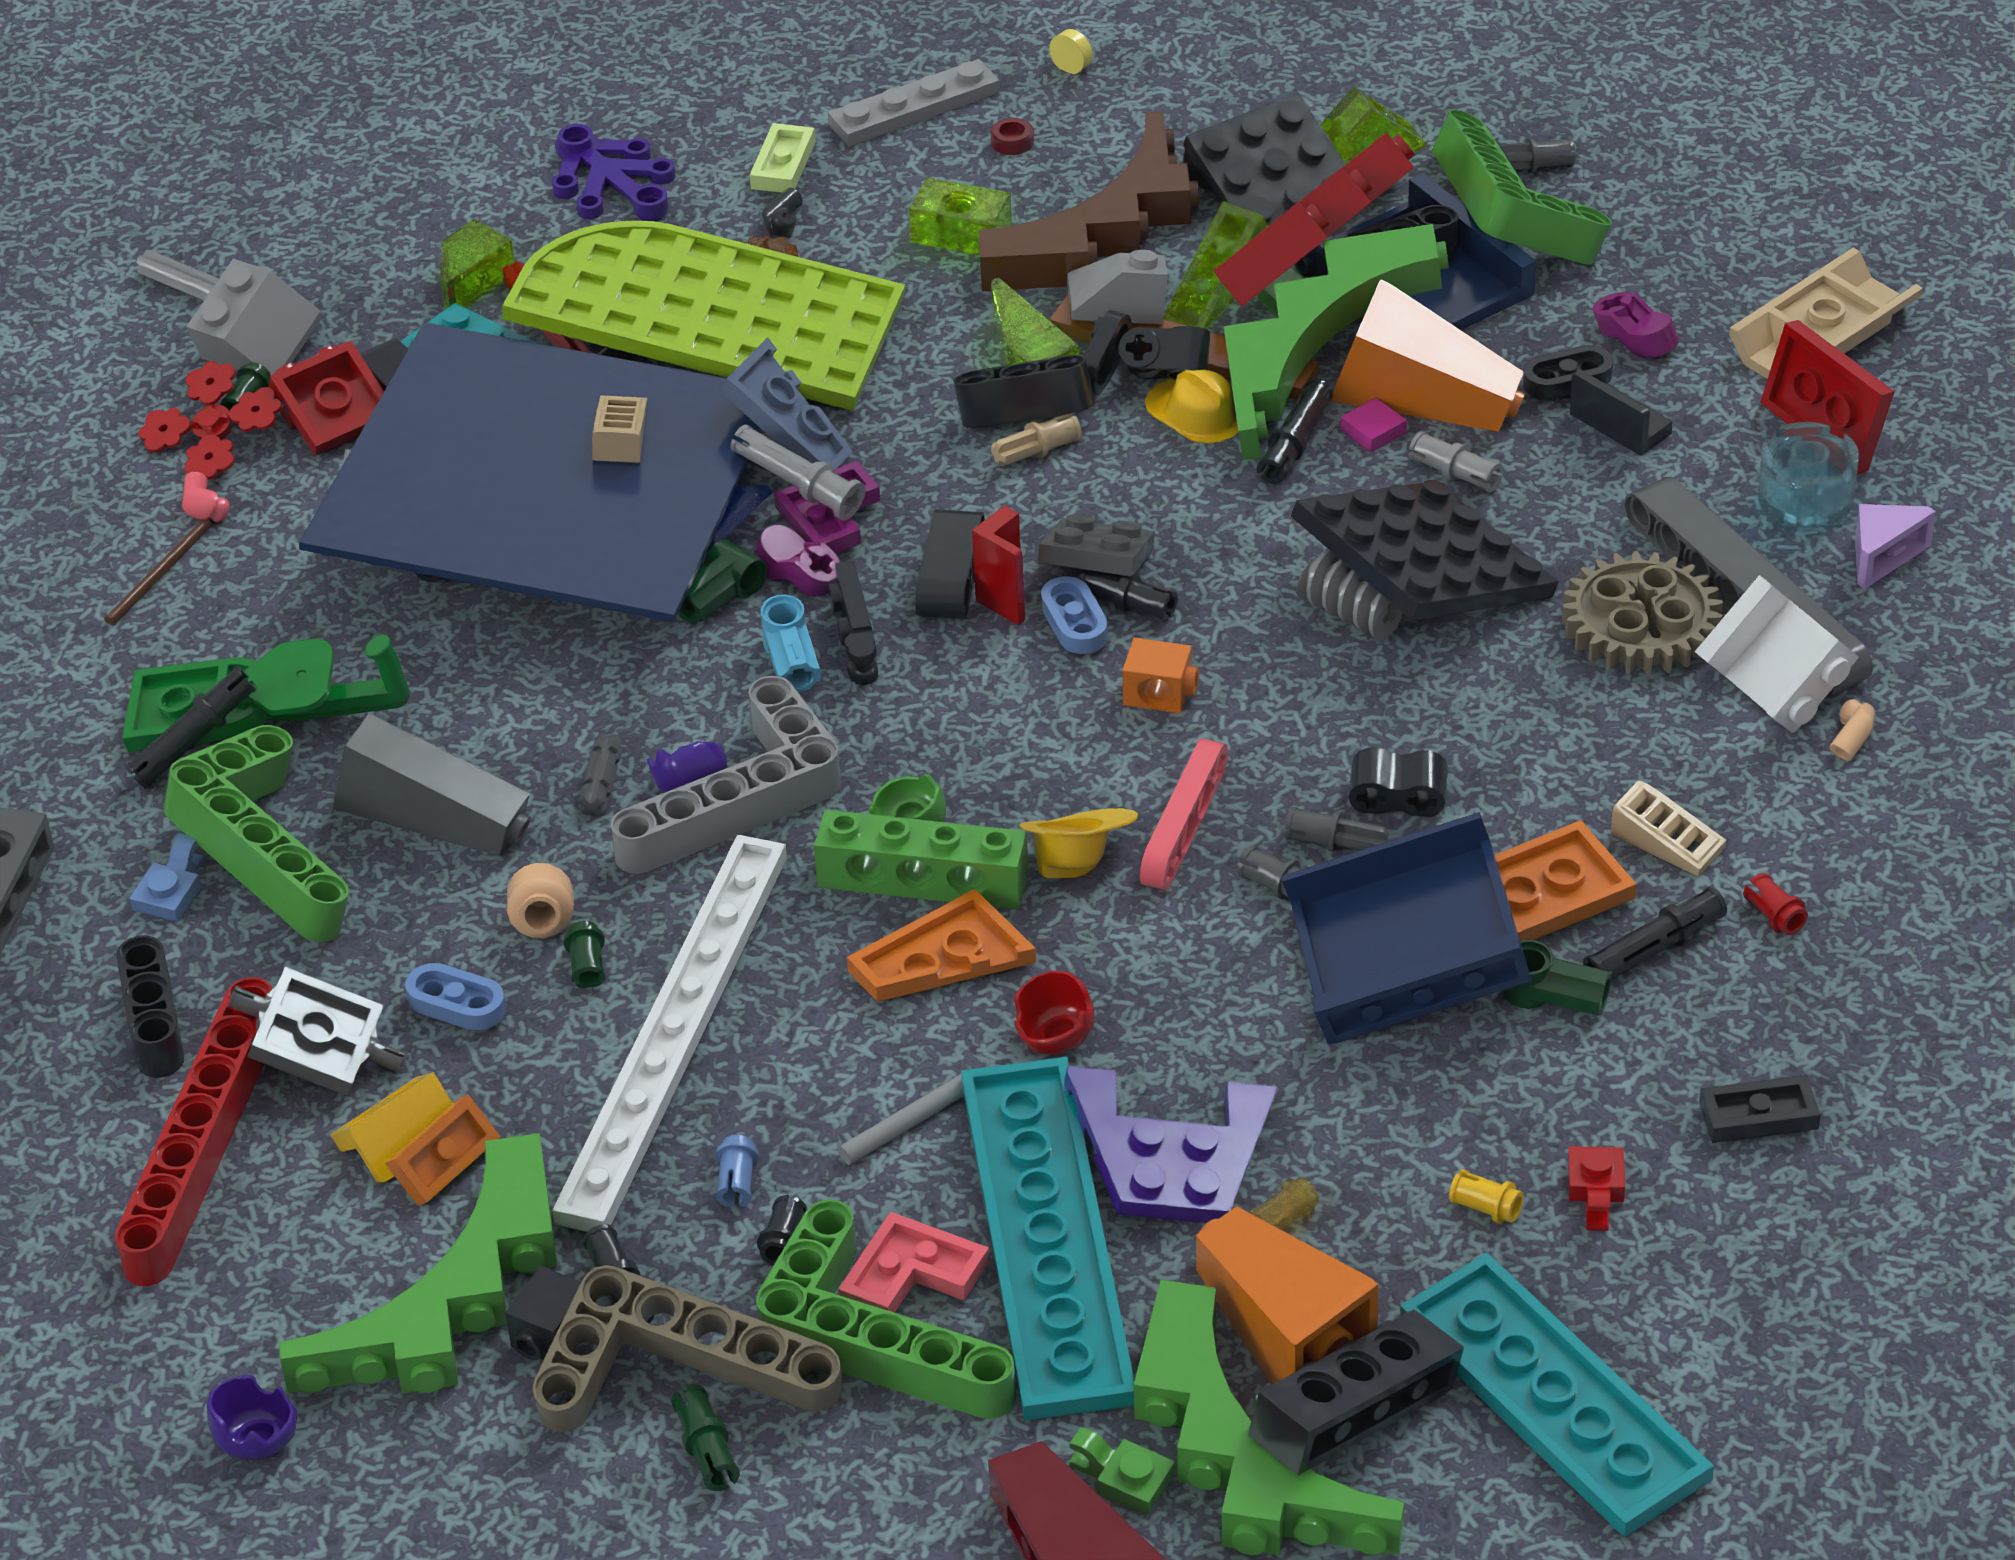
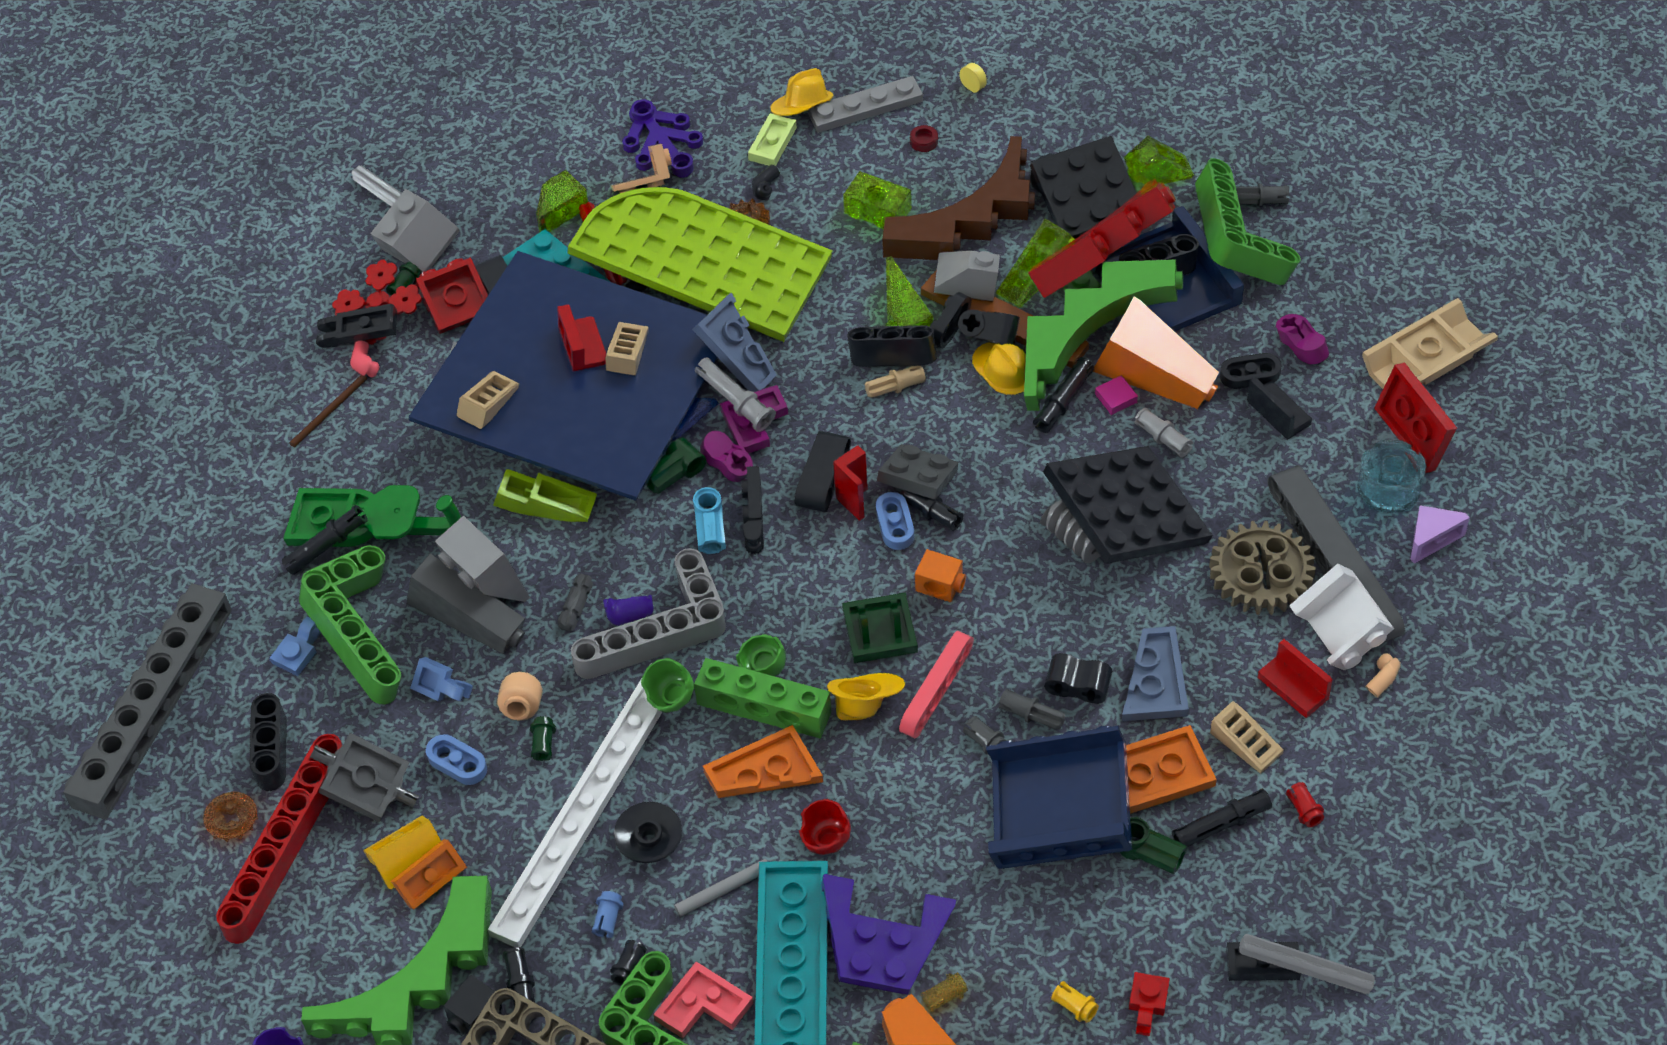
camera: 10 degrees right, 10 degrees up
(101, 1100) = (229, 804): none -> clear orange gear
(184, 452) = (357, 325): none -> black hinge
(401, 897) = (435, 681): none -> medium blue plate
(415, 508) = (484, 401): none -> tan slope
(451, 712) = (479, 562): none -> light grey slope
(523, 643) = (544, 497): none -> lime slope
(545, 421) = (580, 340): none -> red panel
(618, 198) = (660, 161): none -> light nougat bracket
(773, 849) = (667, 685): none -> bright green hair
(778, 1054) = (645, 820): none -> black dish
(817, 90) = (802, 93): none -> yellow piece
(1080, 752) = (879, 627): none -> dark green plate
(1518, 769) = (1157, 678): none -> sand blue wing
(1727, 745) = (1296, 679): none -> red panel
(1827, 1097) = (1306, 964): none -> light grey axle

